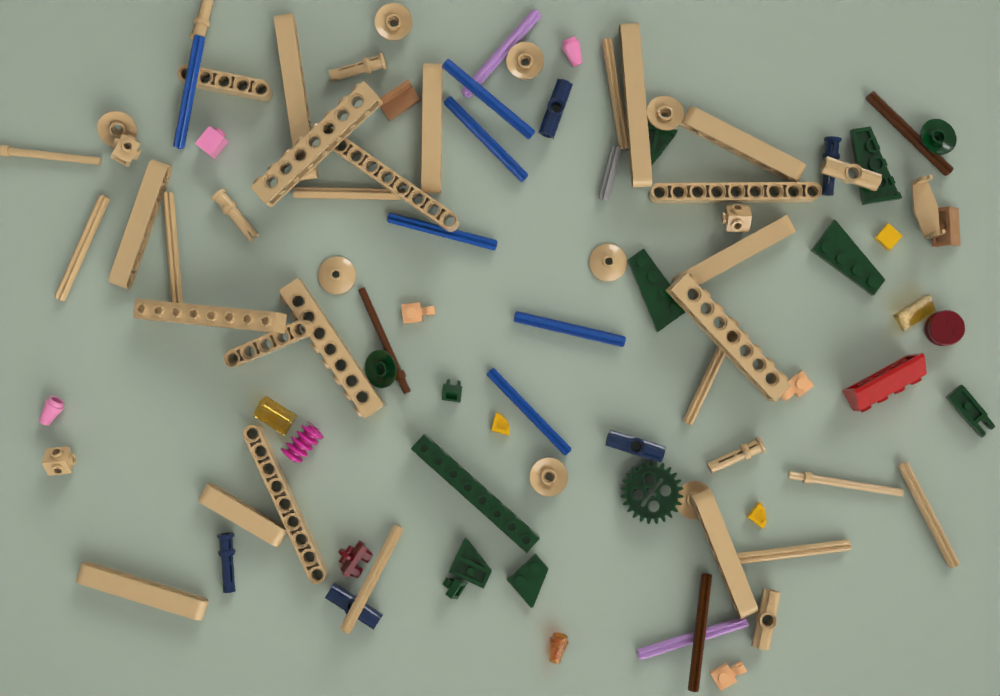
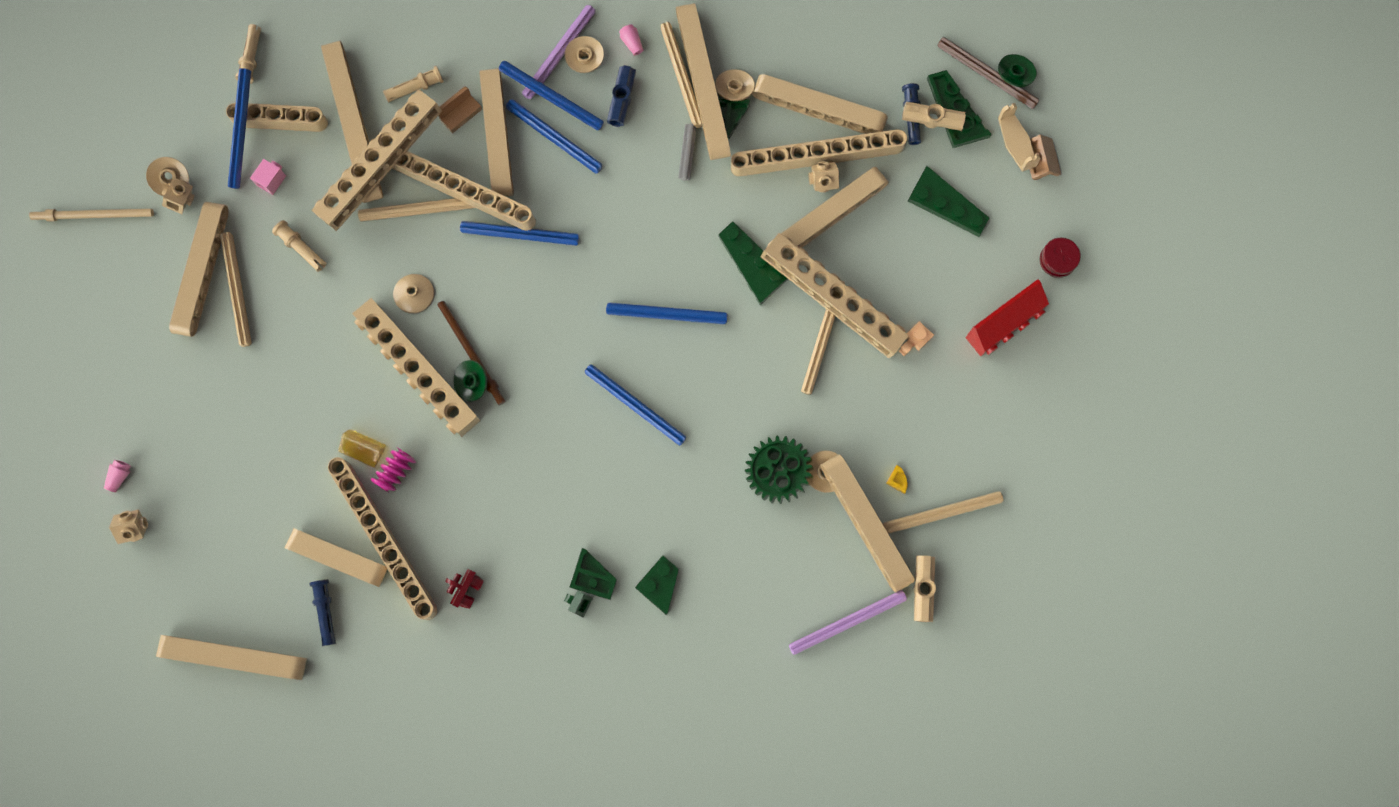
camera: 10 degrees left, 10 degrees down
(82, 248) = (138, 302): tan axle -> none
(210, 316) = (280, 347): tan brick -> none
(261, 348) = (337, 372): tan beam -> none
(342, 598) = (456, 634): dark blue piece -> none
(371, 579) = (484, 605): tan axle -> none
(393, 13) = (443, 28): tan dish -> none
(414, 313) = (500, 319): light nougat plate -> none
(452, 392) = (549, 394): dark green tile -> none
(475, 493) = (587, 496): dark green brick -> none
(500, 424) = (606, 423): yellow tile -> none
(555, 484) = (665, 458): tan dish -> none
(558, 645) = (700, 653): clear orange cone -> none
(601, 269) = (698, 250): tan dish -> none
(647, 449) = (739, 421): dark blue piece -> none
(699, 633) = (854, 613): reddish brown axle -> none
(725, 675) = (890, 659): light nougat plate -> none
(745, 452) = (871, 414): tan pin -> none
(808, 477) = (945, 432): tan bar -> none
(888, 237) = (985, 176): yellow tile -> none
(915, 312) = (1026, 246): clear yellow slope -> none
(928, 514) = (1080, 453): tan axle -> none
(969, 409) = (1103, 337): dark green hinge -> none

